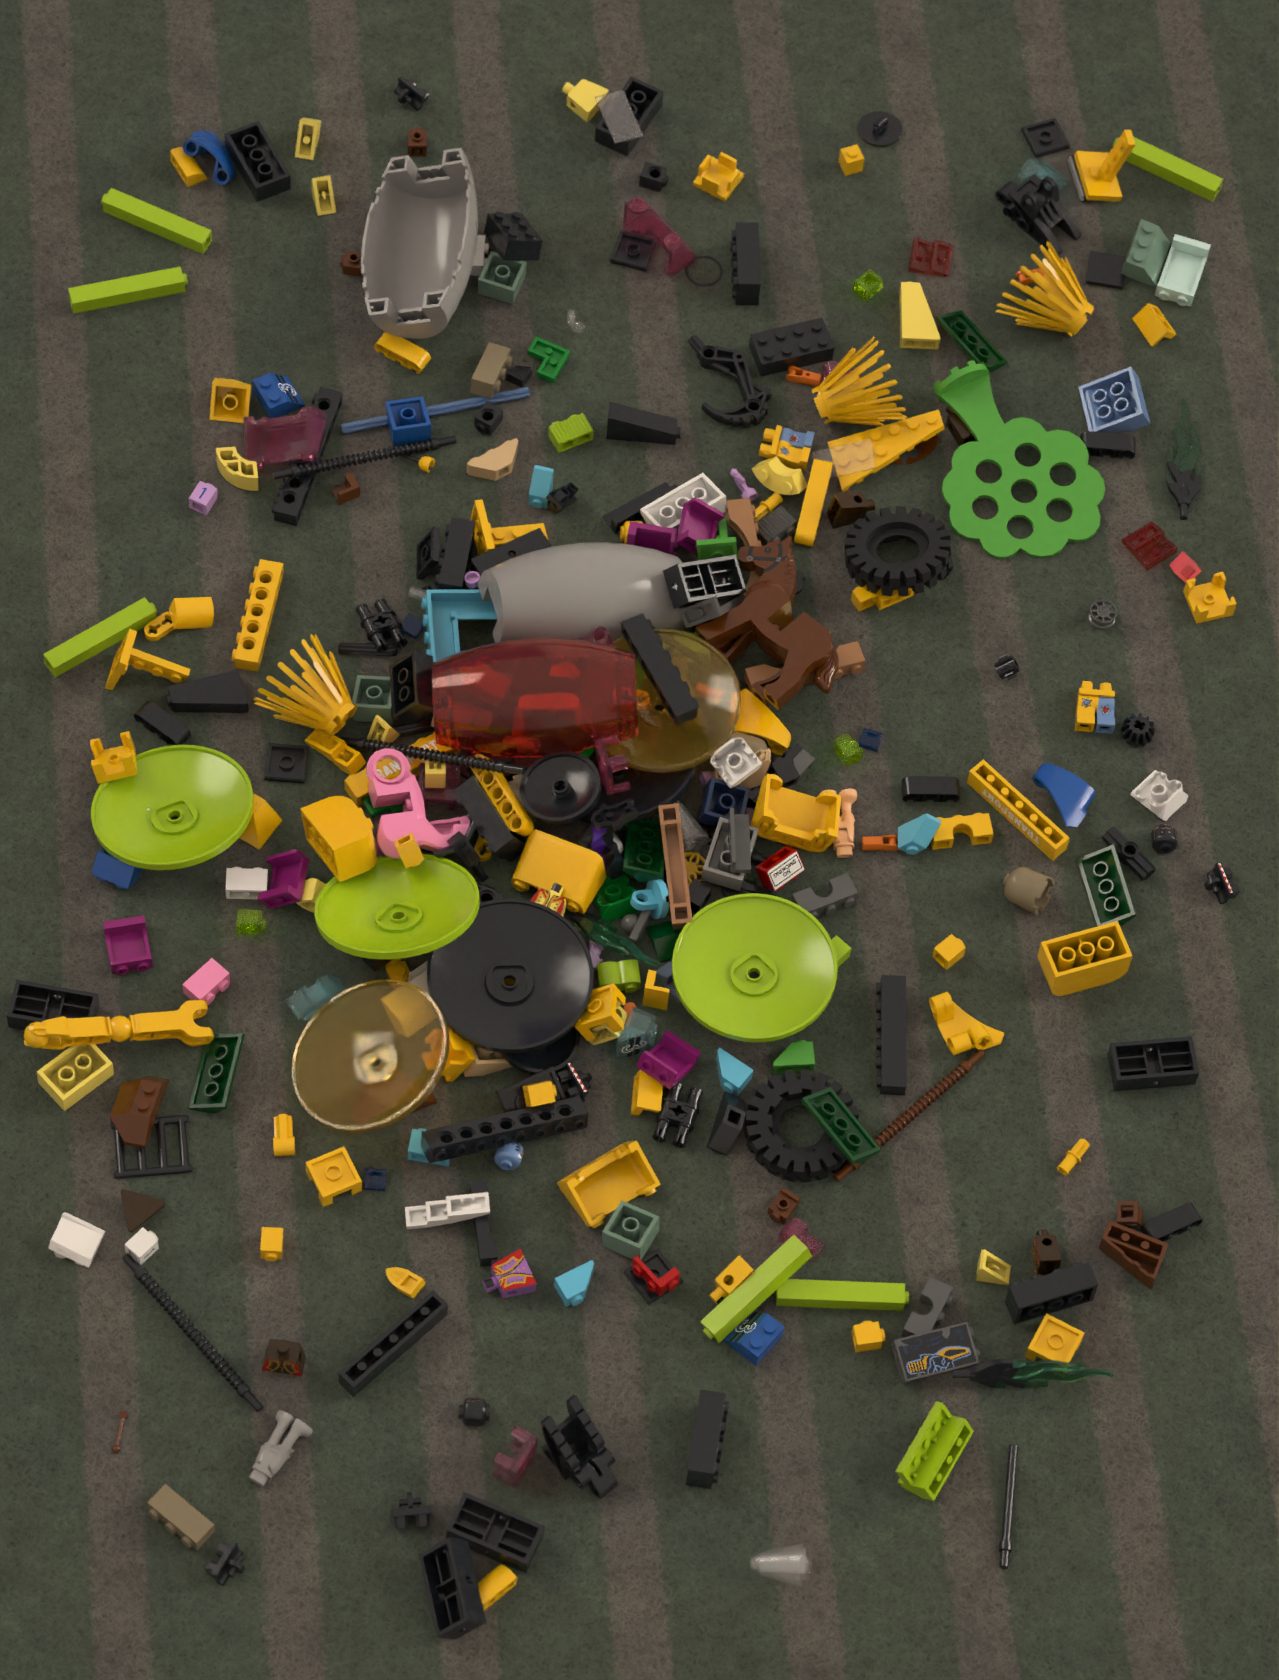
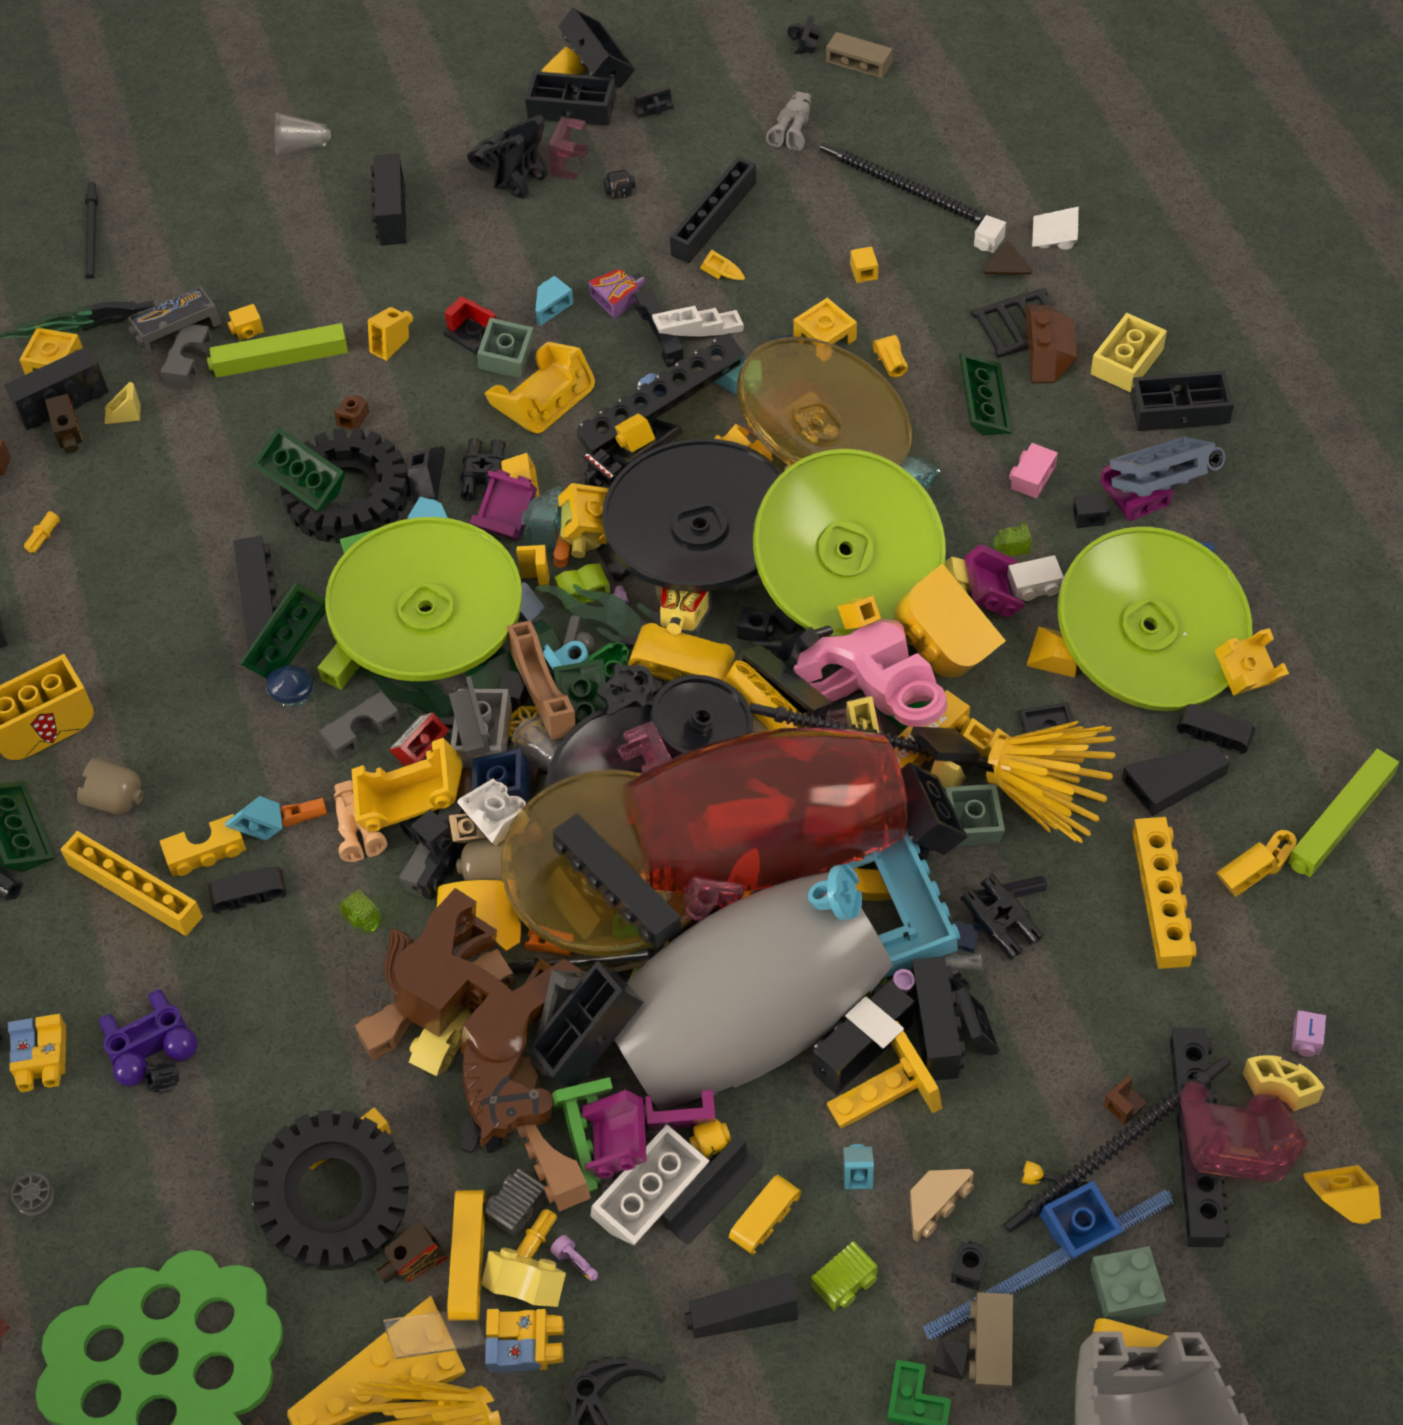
camera: 175 degrees right, 5 degrees down
(68, 1032) = (1154, 352): yellow piece -> none
(80, 945) = (1166, 465): none -> sand blue hinge
(123, 1415) = (945, 118): reddish brown hinge -> none
(143, 661) = (1272, 780): yellow piece -> none
(175, 932) = (1090, 510): none -> black brick
(276, 395) = (1281, 1220): blue slope -> none
(284, 1357) = (813, 176): dark brown torso -> none
(377, 736) = (945, 744): none -> black tile
(392, 380) = (1128, 1284): none -> sand green brick
(501, 548) = (874, 1022): none -> white sticker
(510, 576) = (841, 893): none -> medium azure tile
(562, 497) = (825, 1160): black hips -> none
(610, 480) = (763, 1214): none -> yellow beam
(755, 1289) = (353, 326): lime brick -> none
(755, 1336) = (359, 297): blue slope -> none
(800, 1230) = (329, 392): clear pink plate -> none
(870, 739) = (334, 940): tile -> none
(875, 948) = (290, 685): none -> dark blue hair
(876, 970) = (285, 631): none -> dark green slope
(933, 1452) = (166, 245): lime brick -> none
(949, 951) = (201, 702): yellow brick -> none
(959, 1028) = (174, 627): yellow panel -> none
(964, 1068) = (172, 591): reddish brown hose -> none
(1015, 697) = (146, 1038): none -> dark purple piece
(1067, 790) = (72, 919): blue panel -> none

